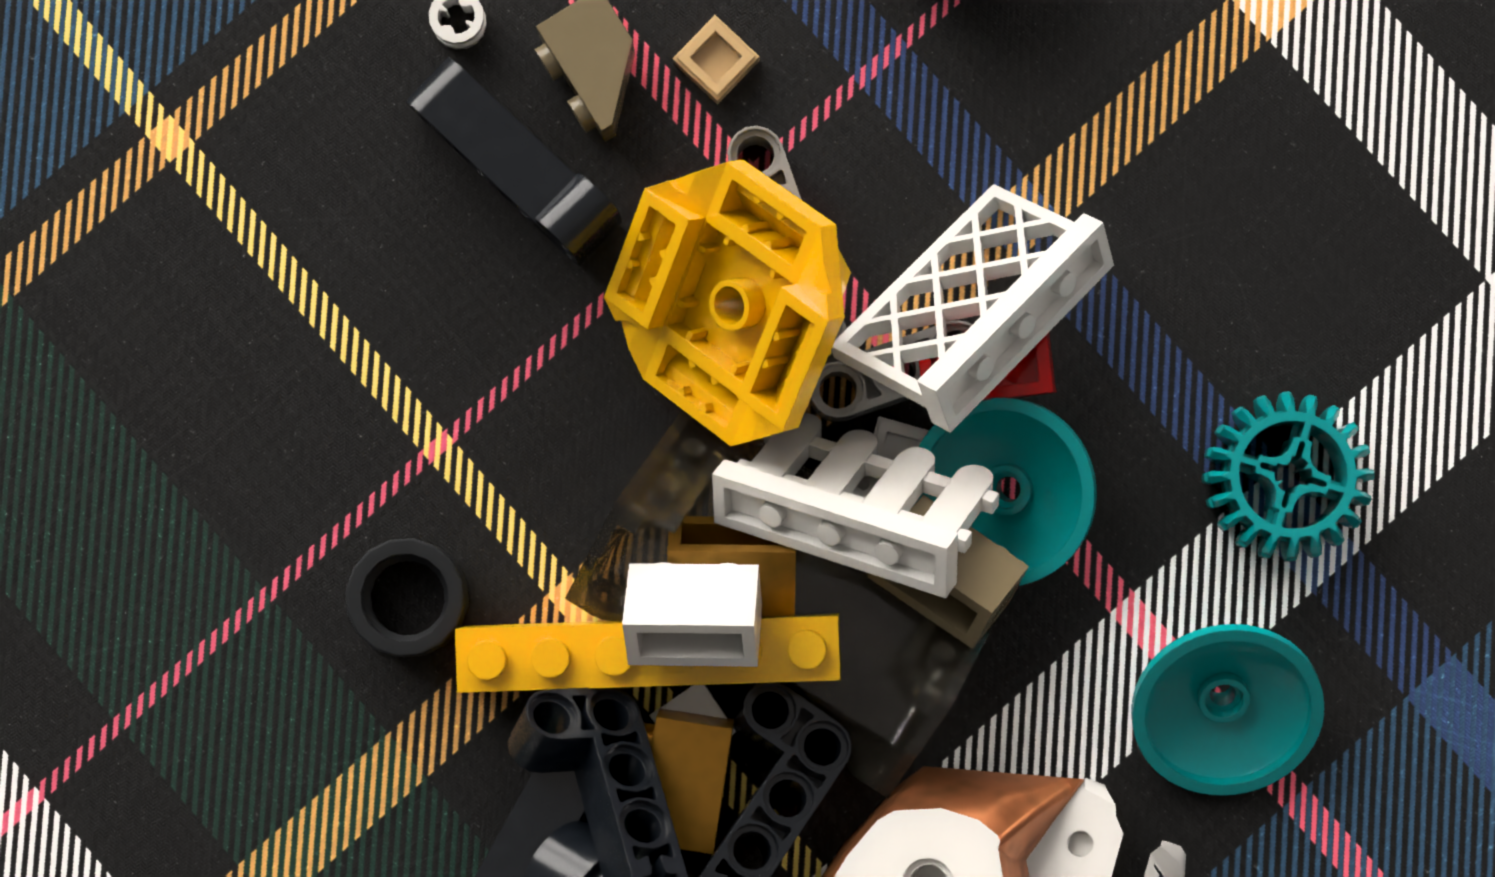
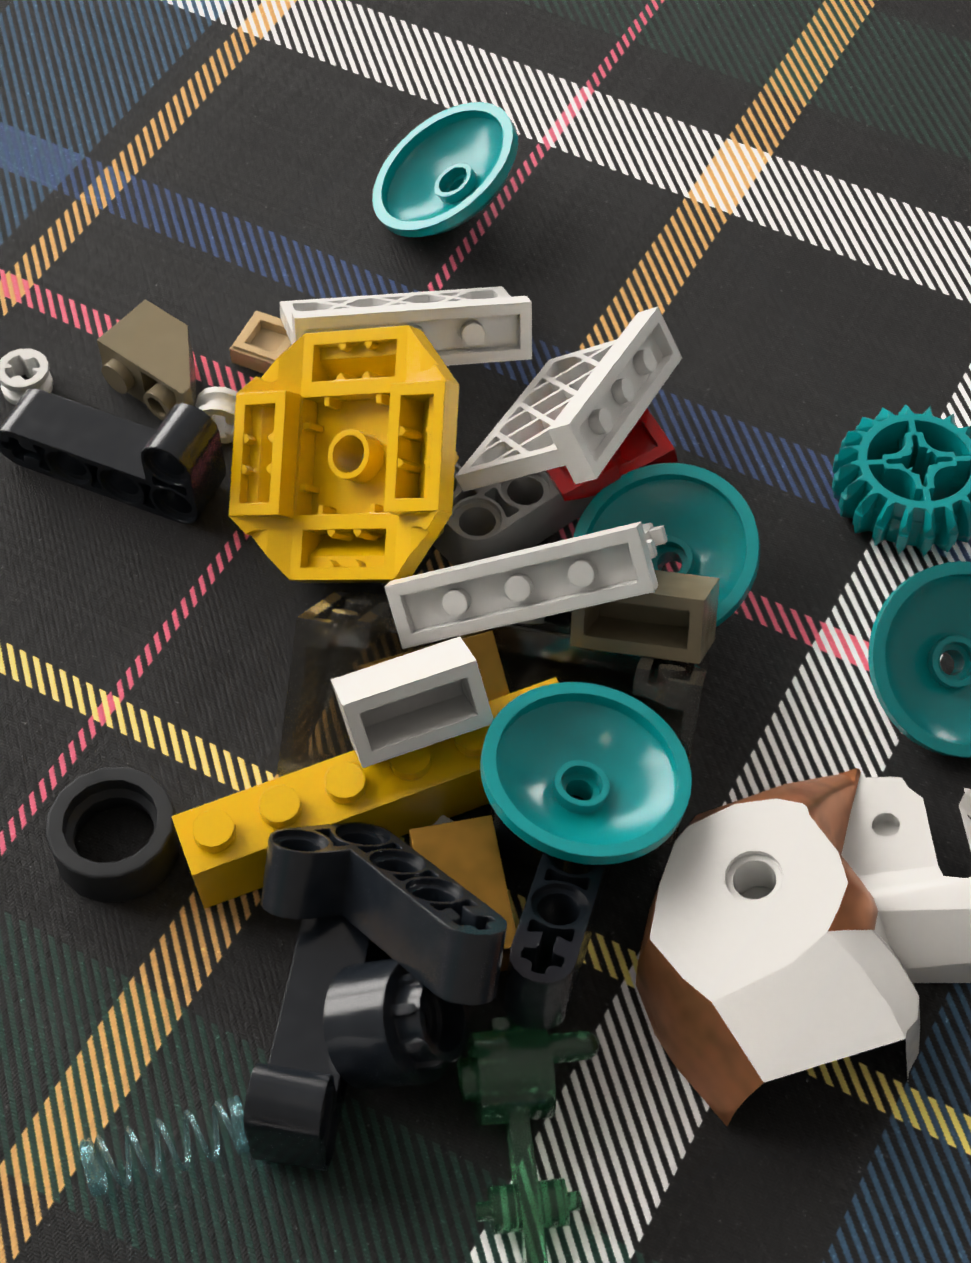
camera: 25 degrees left, 30 degrees down
(637, 147) = (220, 406): none -> white bush
(848, 148) = (459, 323): none -> white fence
(862, 754) = (588, 746): none -> teal dish

